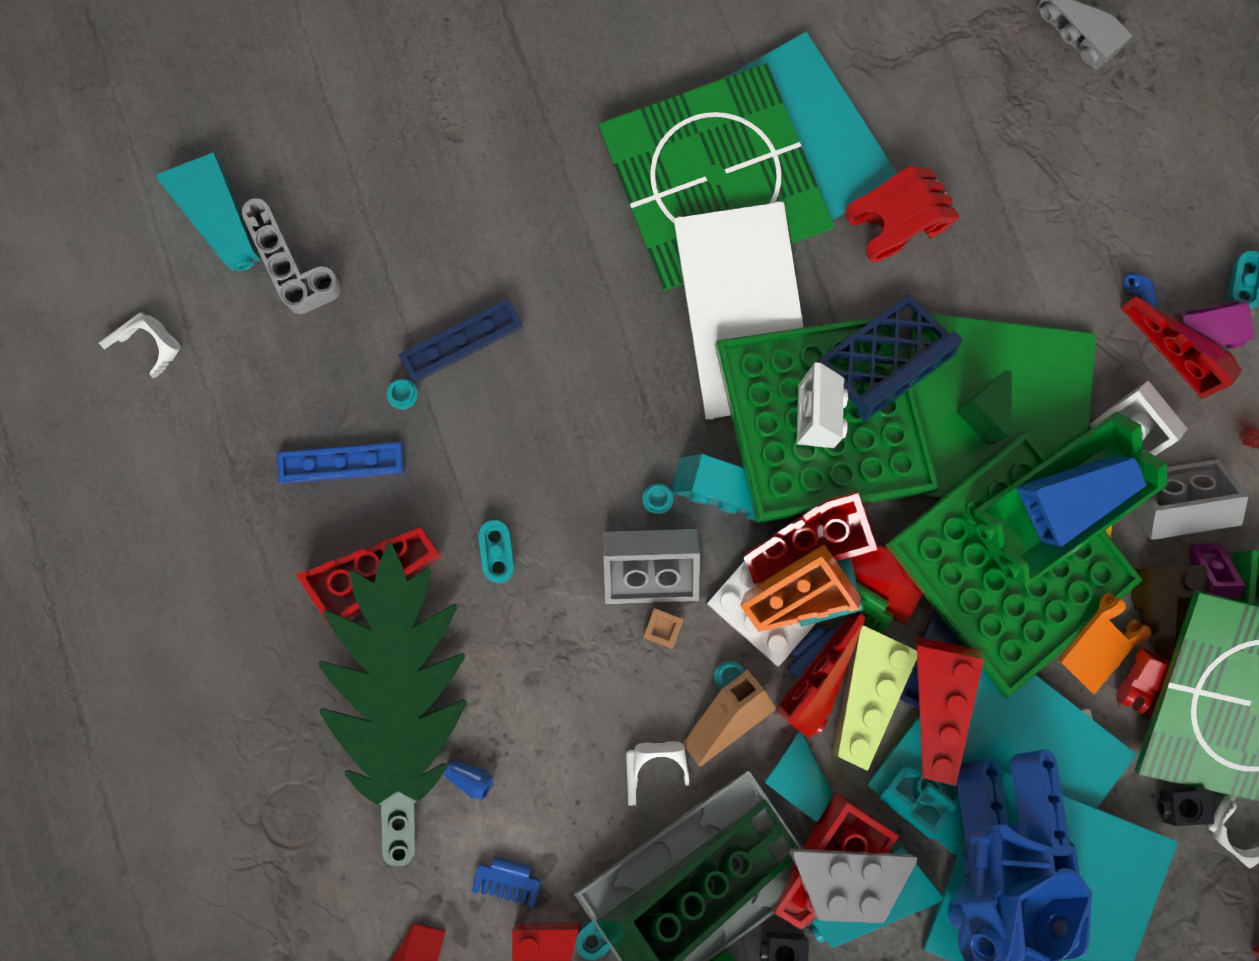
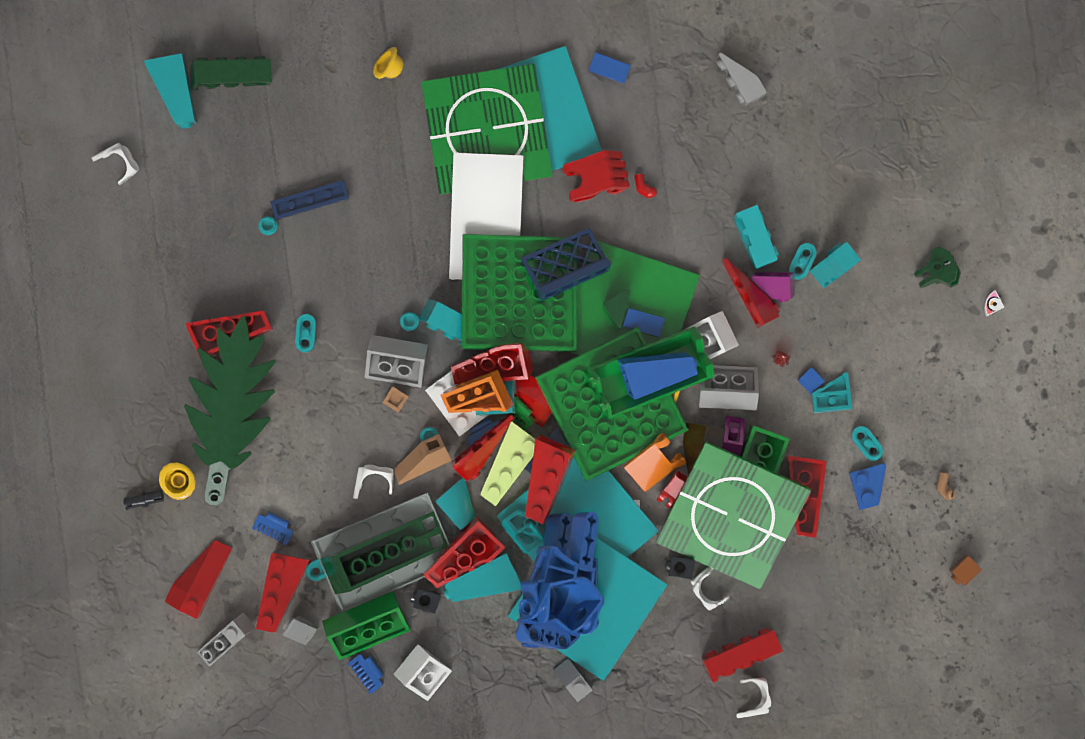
camera: 15 degrees right, 5 degrees up
(282, 255) = (212, 124): light grey beam -> none
(282, 882) = (143, 499): none -> black pin
(296, 167) = (230, 72): none -> dark green wedge
(331, 839) = (177, 480): none -> yellow hat
(340, 462) = (223, 260): blue tile -> none
(469, 779) = (263, 463): blue cone -> none
(543, 109) = (388, 64): none -> yellow hat
(821, 408) = (514, 289): white slope -> none
(852, 884) = (471, 567): light grey wing -> none
(880, 52) = (609, 68): none -> blue tile
(976, 220) = (644, 189): none -> red arm
(1039, 423) = (646, 322): none -> blue tile
(1141, 287) = (737, 252): blue arm -> none
(1169, 255) = (755, 237): none -> teal wedge

